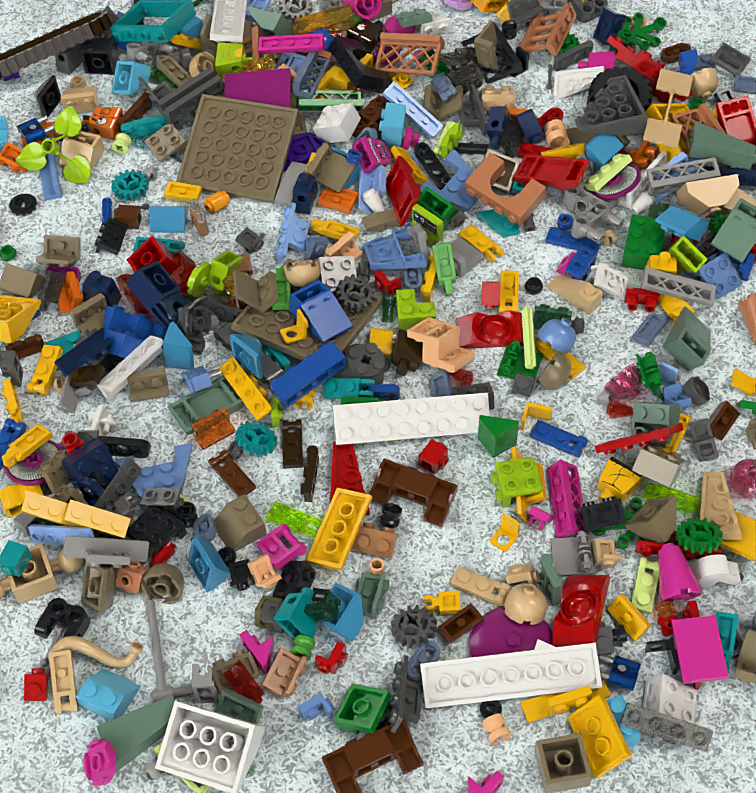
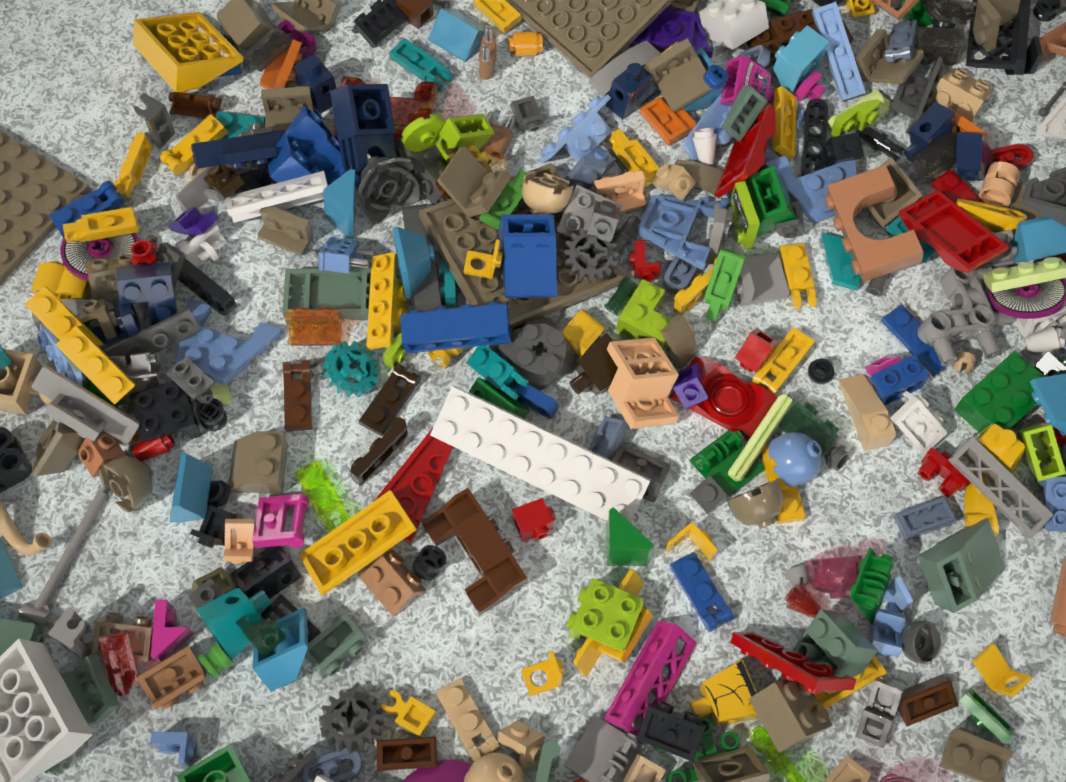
camera: 30 degrees right, 10 degrees up
(82, 414) = (193, 222): none -> dark purple slope
(152, 251) = (402, 74): red brick -> none
(205, 527) = (217, 444): sand blue plate -> none
(337, 658) = (241, 699): red bracket -> none
(352, 267) = (604, 220): none -> dark grey bracket
(370, 227) = (674, 179): none -> tan bracket
(377, 563) = (366, 626): light nougat hinge -> none
(381, 160) = (740, 102): none -> sand green slope
(443, 309) = (680, 341): none -> dark tan slope
(455, 160) = (842, 149): none -> black bracket
(462, 376) = (644, 440): clear red cone -> none
(470, 332) = (689, 386): none -> dark purple bracket
(540, 515) = (603, 679): dark pink tile -> none
(565, 226) = (931, 302): blue bush -> none

